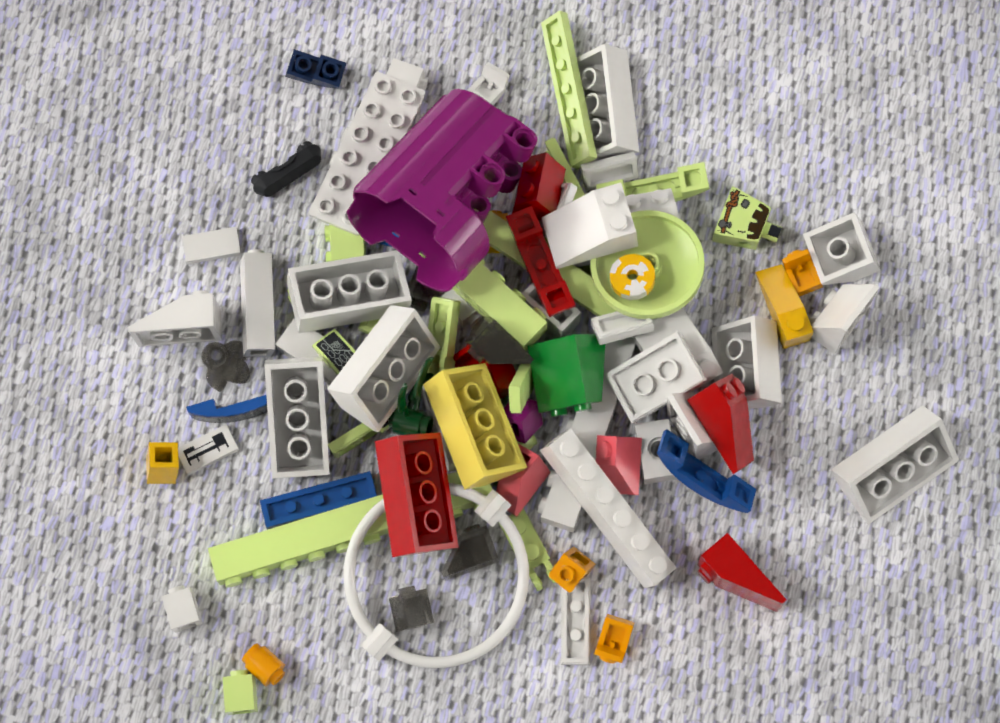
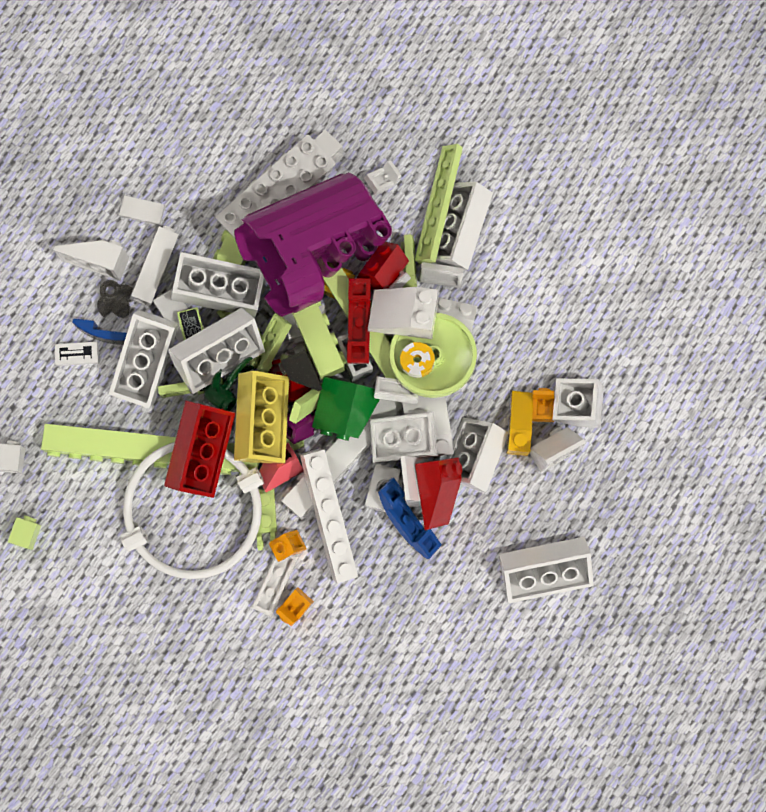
camera: 20 degrees right, 5 degrees up
(162, 462) = (40, 350): yellow brick -> none
(264, 665) = (49, 520): light orange brick -> none
(270, 182) = (225, 178): black piece -> none
(315, 70) = (268, 114): dark blue slope -> none
(317, 499) = (135, 421): blue plate -> none
(411, 609) = (164, 525): clear smoke brick -> none
(473, 553) = (225, 503): clear smoke slope -> none
(620, 461) = (353, 485): coral slope -> none
(685, 183) = (488, 305): yellowish green slope -> none
(735, 572) = (396, 595): red slope -> none
(744, 222) = (520, 351): yellowish green torso -> none

